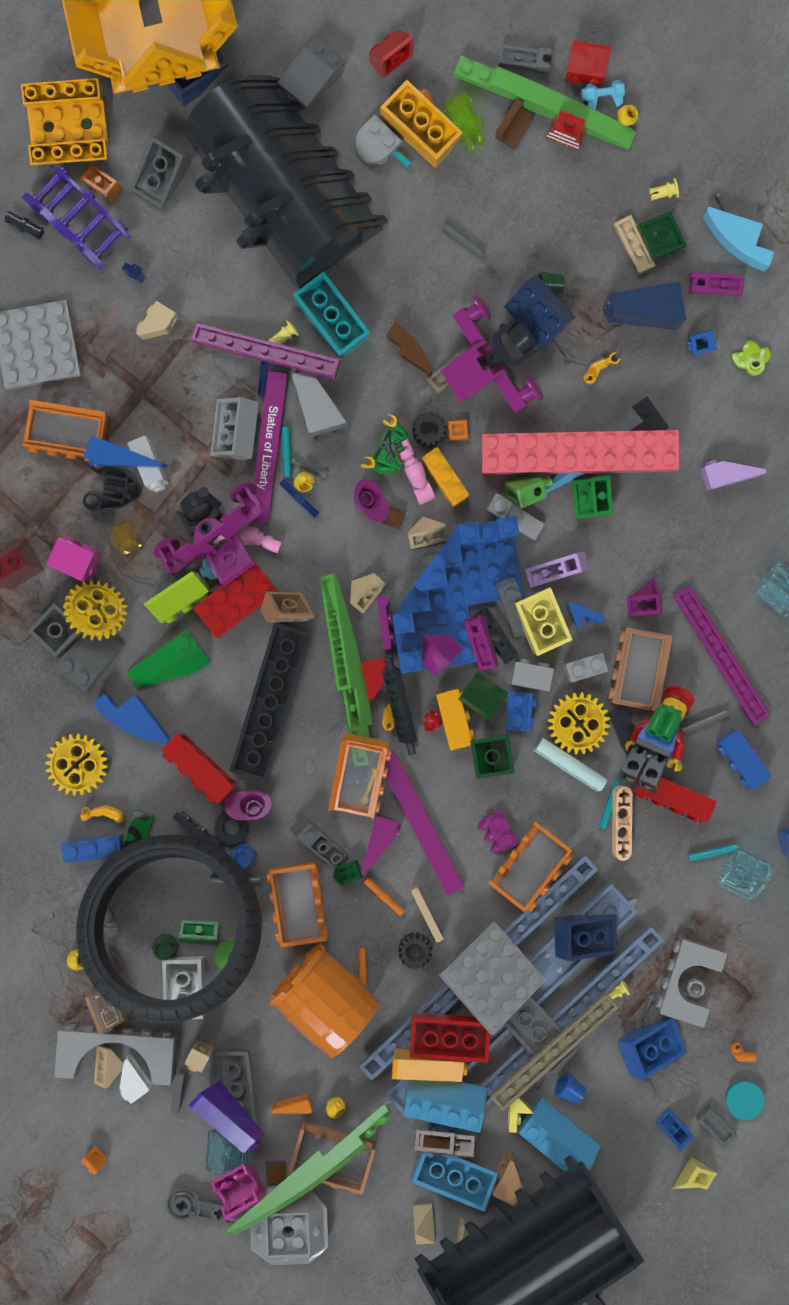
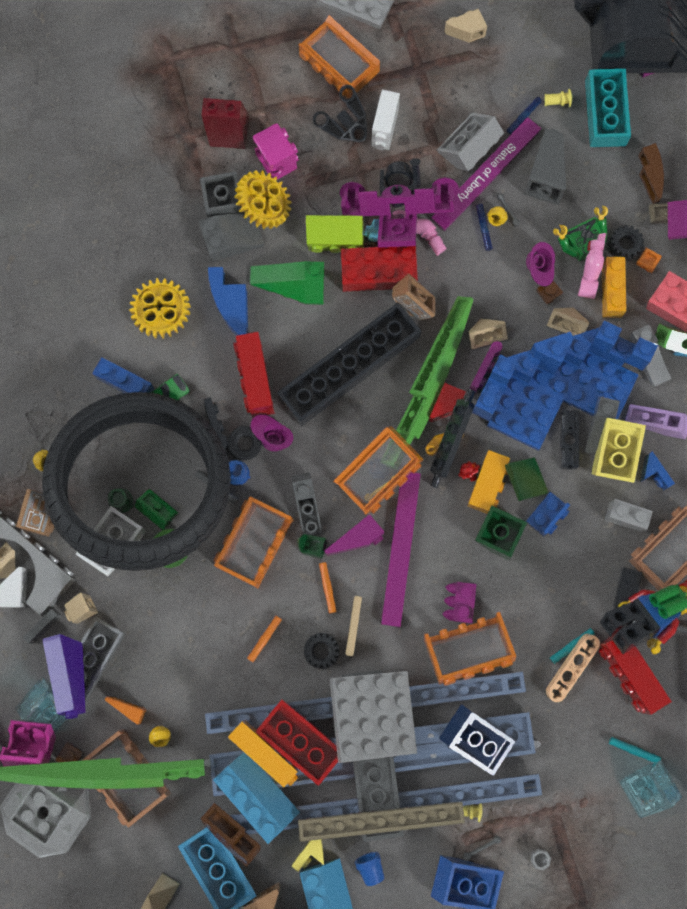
camera: 40 degrees right, 10 degrees down
(106, 810) = (156, 361): light orange arm -> none
(108, 454) = (364, 89): blue slope -> none
(125, 537) = (326, 166): clear yellow slope -> none
(265, 351) = (537, 100): magenta tile -> none
(286, 450) = (498, 186): teal piece -> none
(325, 1001) = (217, 632): orange piece -> none
(438, 652) = (514, 417): magenta slope -> none
(481, 642) = (554, 435): magenta plate -> none
(531, 675) = (578, 491): light grey brick -> none
(565, 734) = (573, 558): yellow gear -> none
(570, 765) = (560, 588): light aqua brick -> none
(687, 954) = (512, 854): light grey arch -> none

